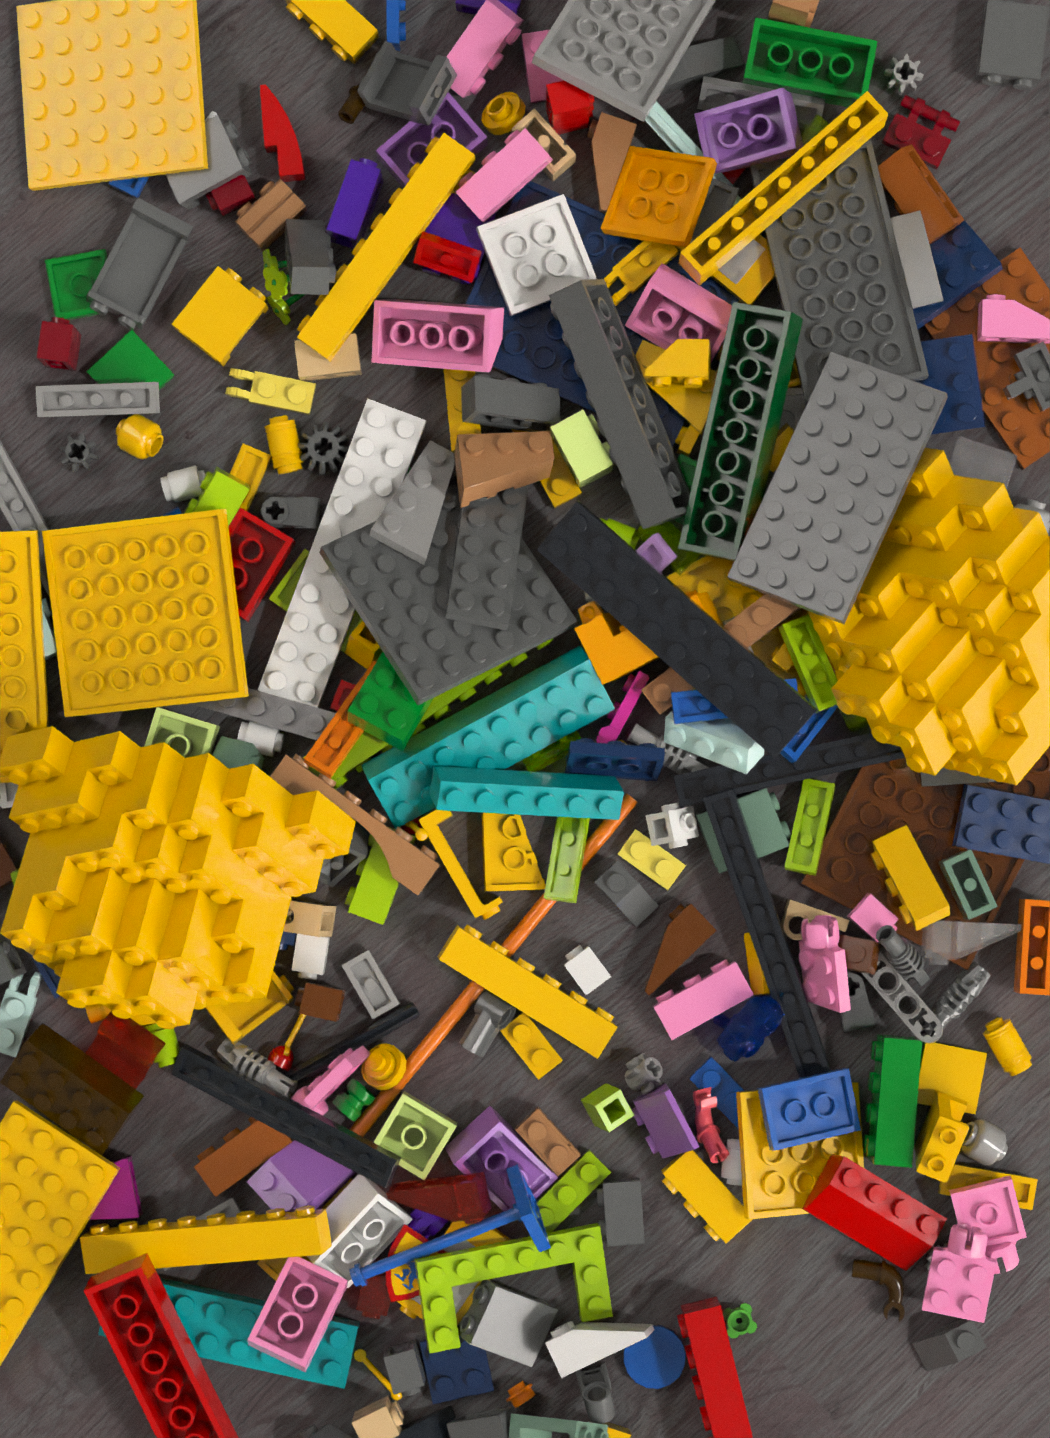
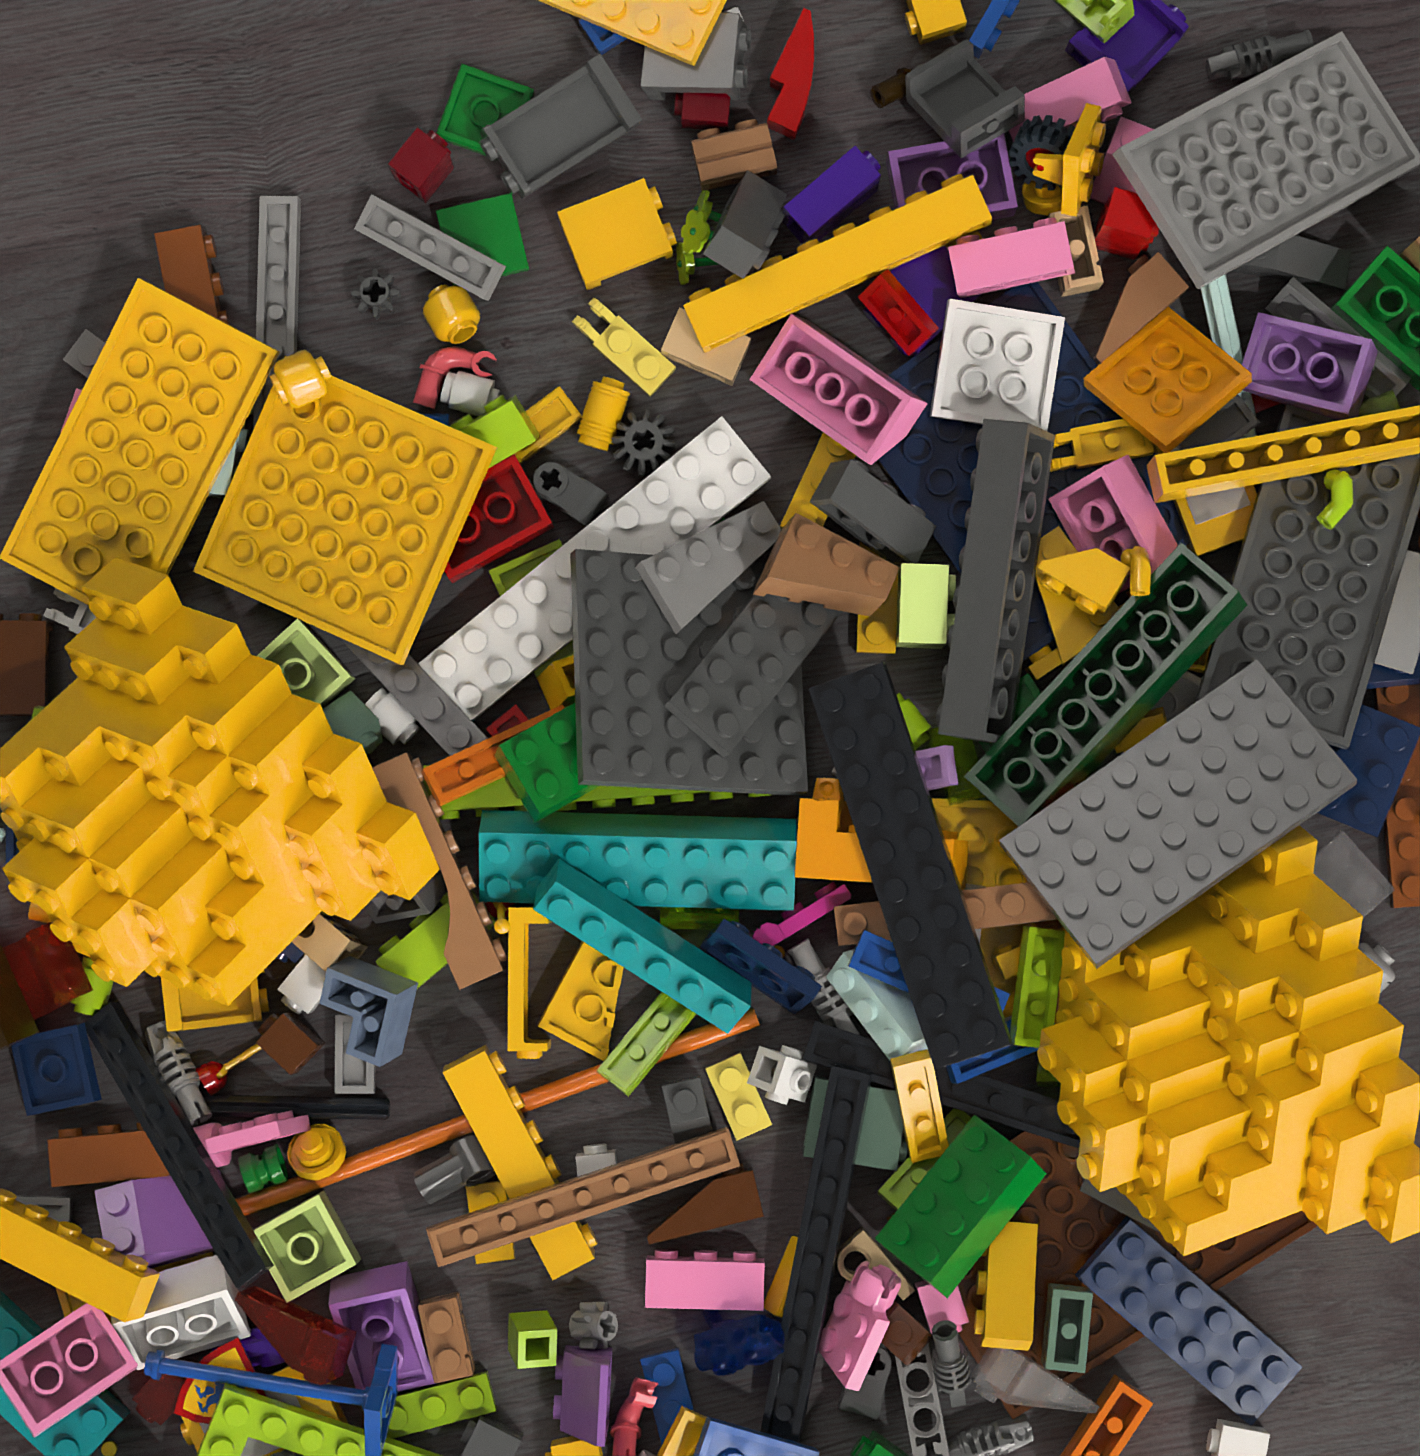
camera: 35 degrees right, 0 degrees up
(62, 540) = (300, 378): none -> yellow head
(151, 478) = (439, 365): none -> coral piece
(171, 1115) = (56, 1070): none -> dark blue plate
(367, 938) = (376, 1001): none -> sand blue brick
(496, 84) = (1061, 155): none -> yellow plate
(585, 988) = (582, 1197): none -> medium nougat tile
(718, 340) = (1140, 570): none -> yellow arm
(779, 791) = (919, 1105): none -> yellow plate
(824, 207) = (1341, 497): none -> lime arm
(847, 843) = (960, 1206): none -> green brick

